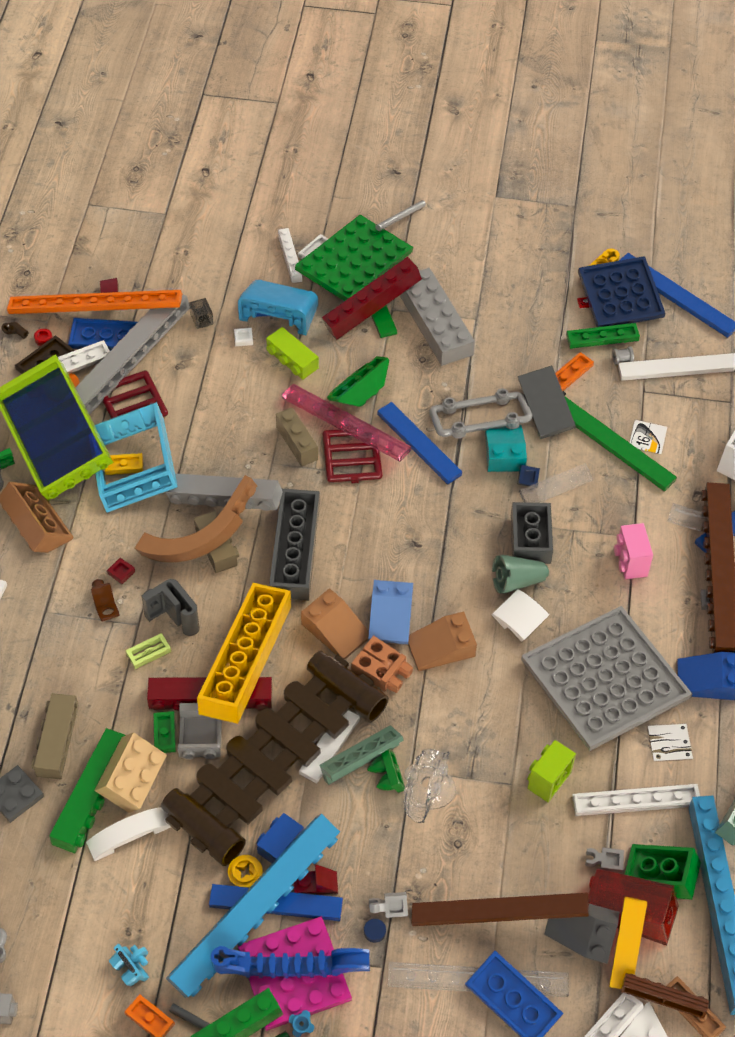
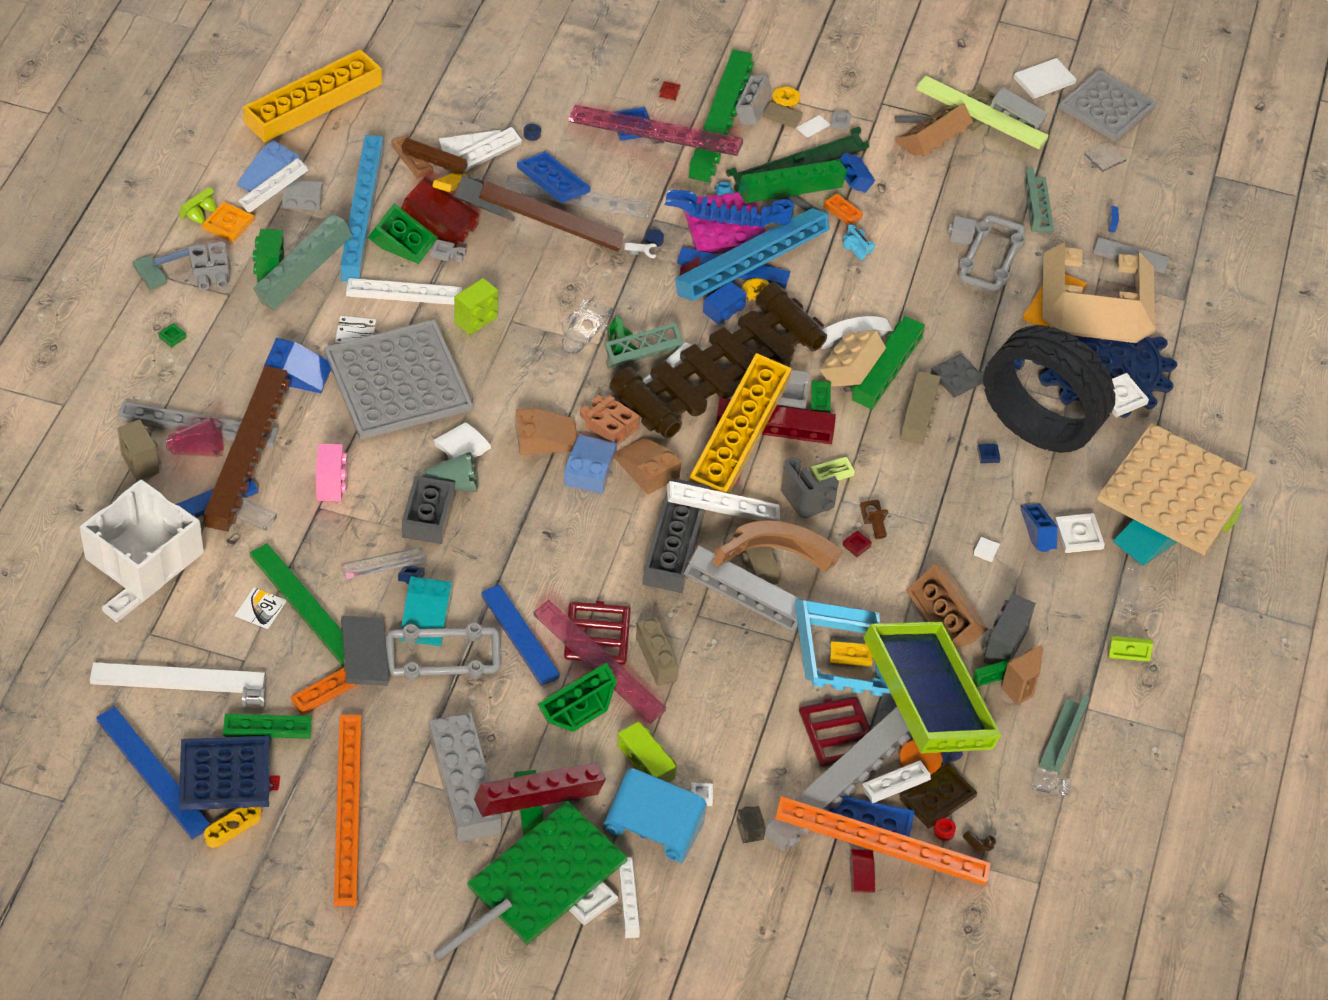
camera: 175 degrees left, 5 degrees down
(253, 572) = (722, 502): none -> white tile
(519, 288) = (347, 811): none -> orange plate

